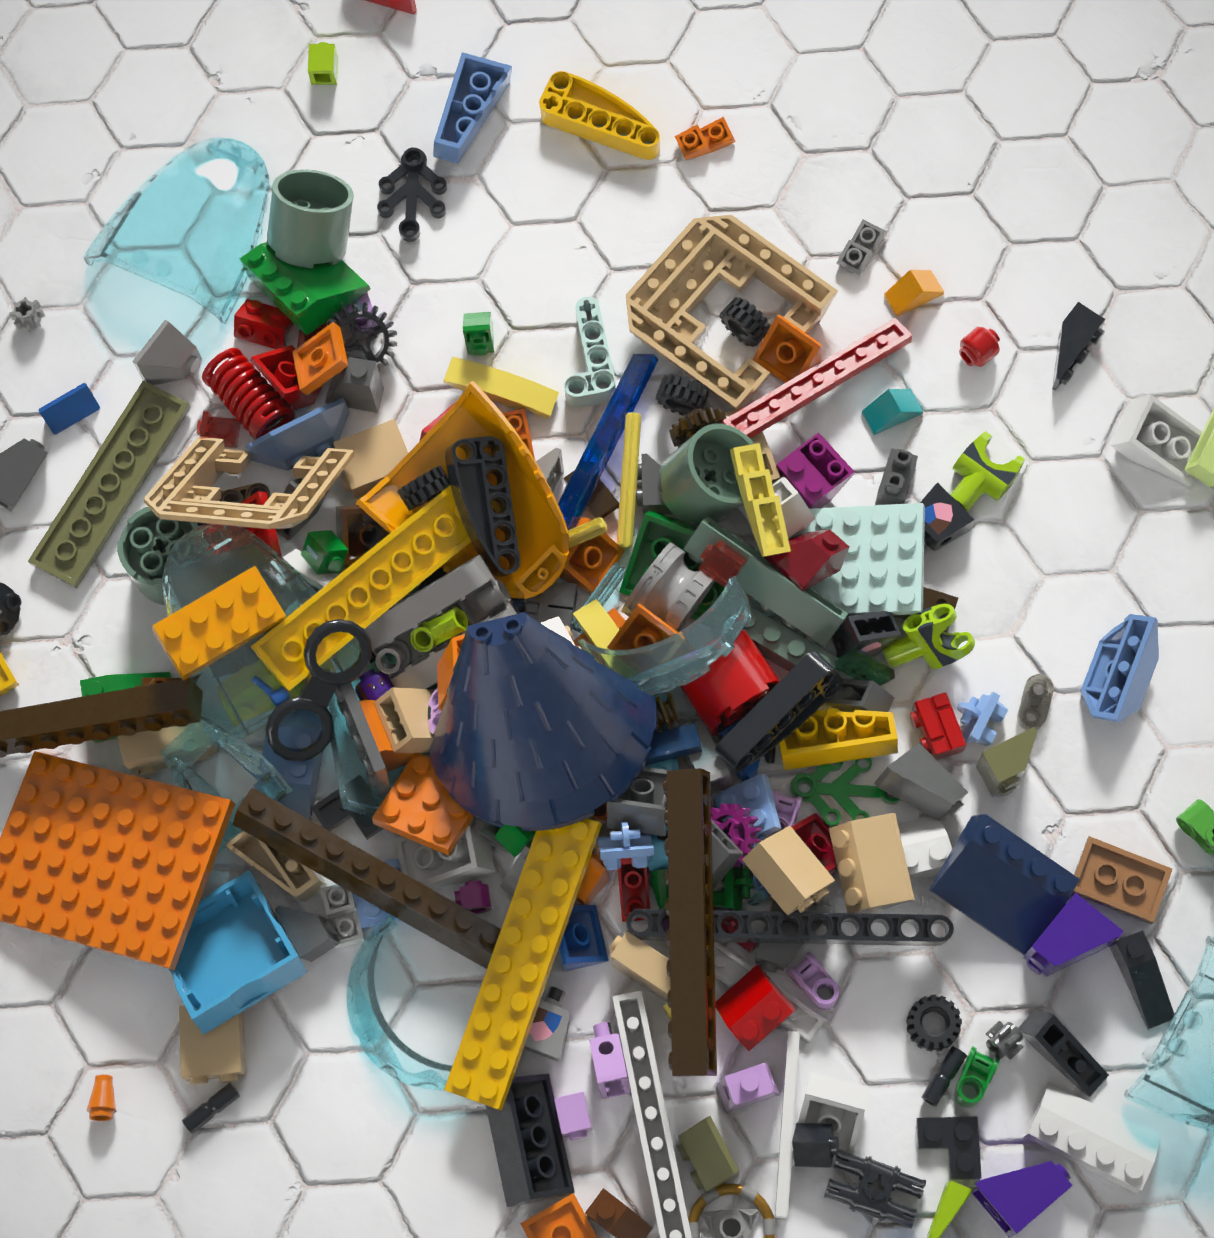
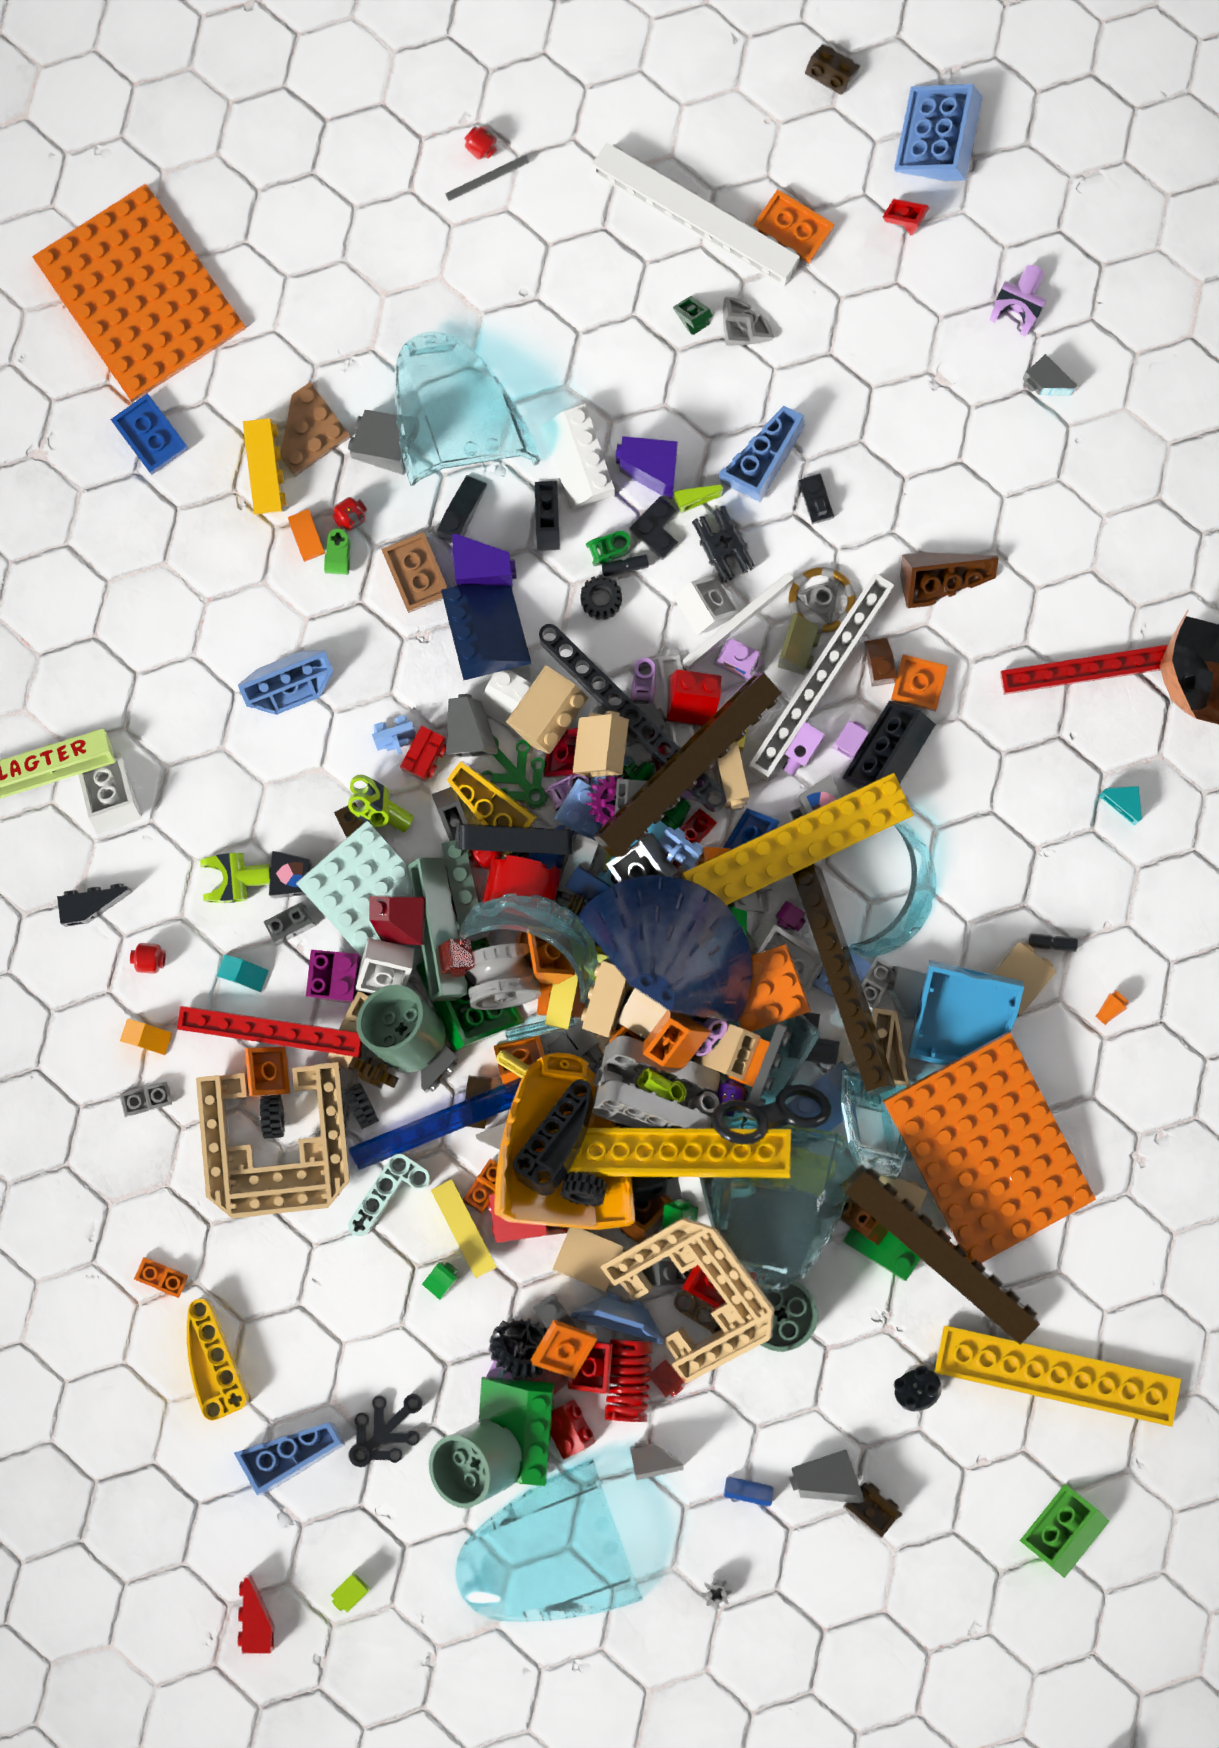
camera: 140 degrees left, 10 degrees up
(109, 484) = (768, 1410): olive plate -> none
(218, 623) = (797, 1204): light orange brick -> none
(277, 696) = (799, 1134): blue hand -> none
(629, 480) = (447, 1084): light yellow axle -> none
(759, 500) = (394, 974): light yellow slope -> none
(814, 1145) = (734, 594): black brick -> none
(859, 630) = (420, 843): black torso -> none
(863, 667) = (432, 824): clear green plate -> none
(1004, 1040) = (573, 550): dark grey gear -> none
(1006, 763) = (408, 691): olive slope -> none
(1035, 703) = (352, 713): clear smoke plate -> none

